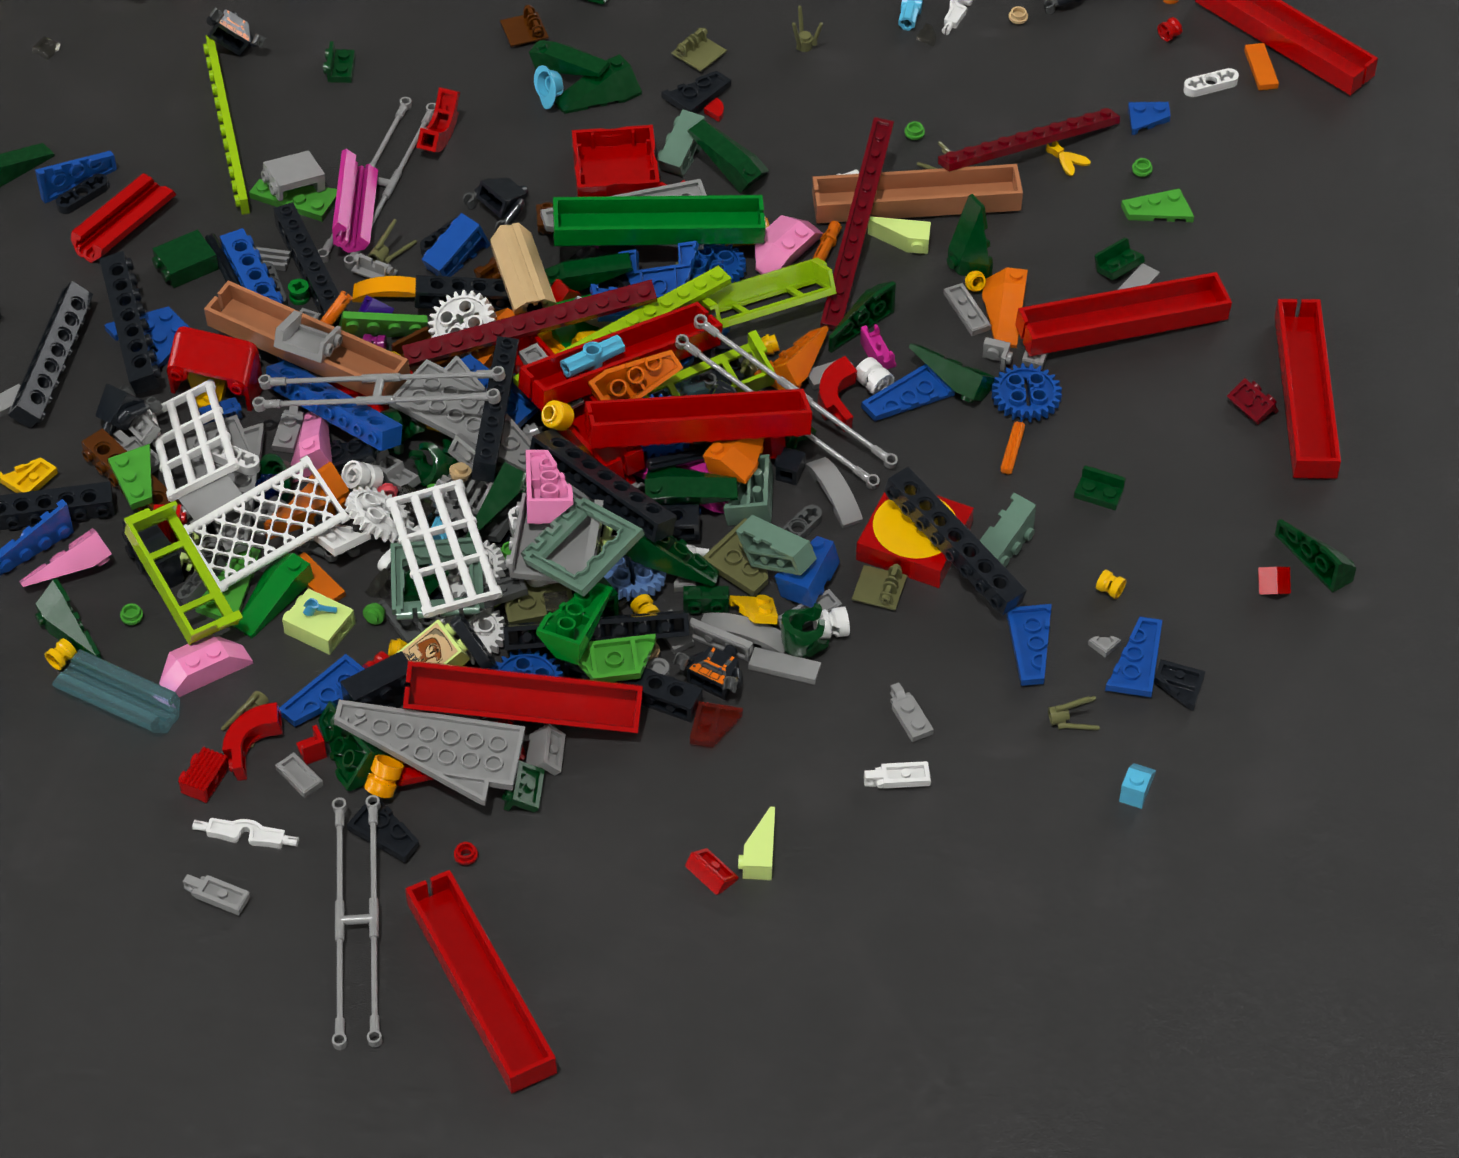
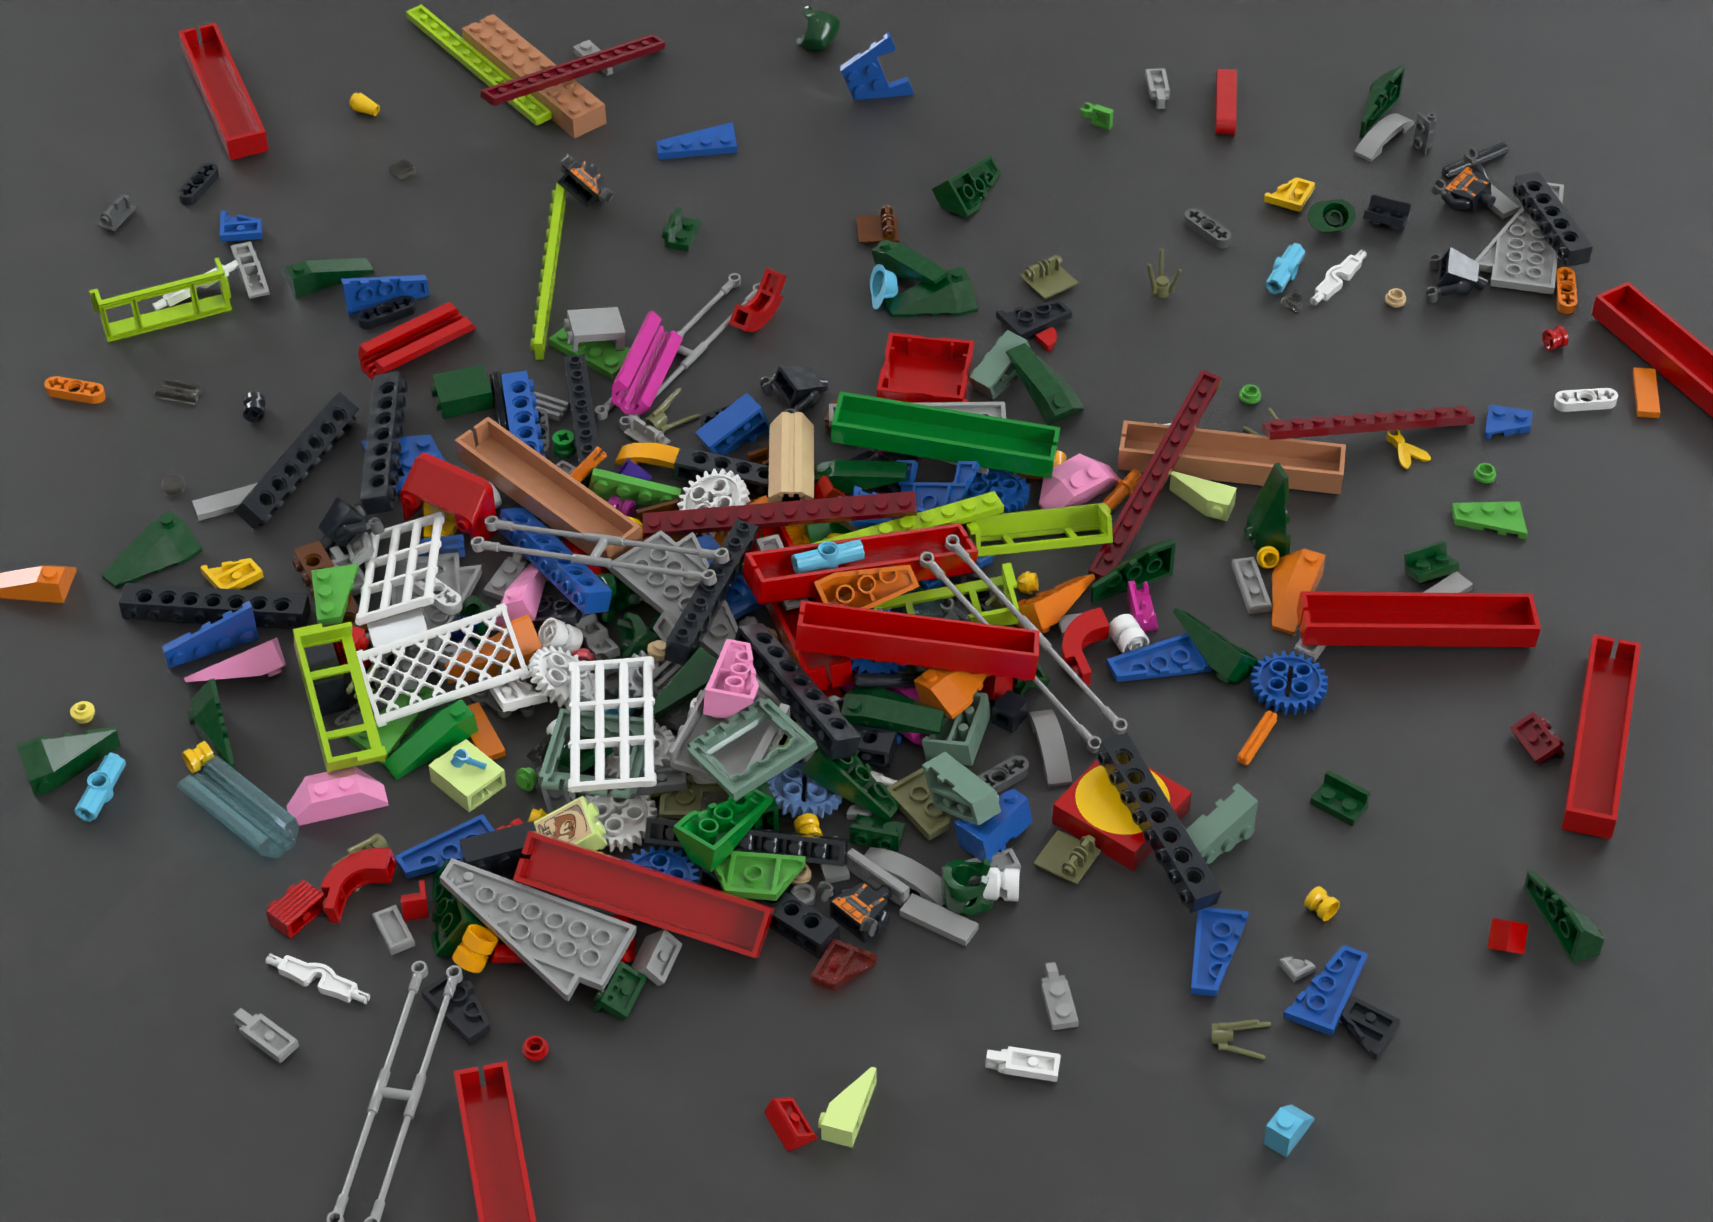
camera: 15 degrees right, 5 degrees down
(131, 614) = (283, 731): bright green plate -> none
(304, 340) = (543, 489): light grey panel -> none
(473, 642) = (613, 827): black beam -> none
(557, 415) = (772, 610): yellow head -> none
(757, 609) = (925, 853): yellow wing -> none
(997, 350) = (1270, 633): light grey bracket -> none

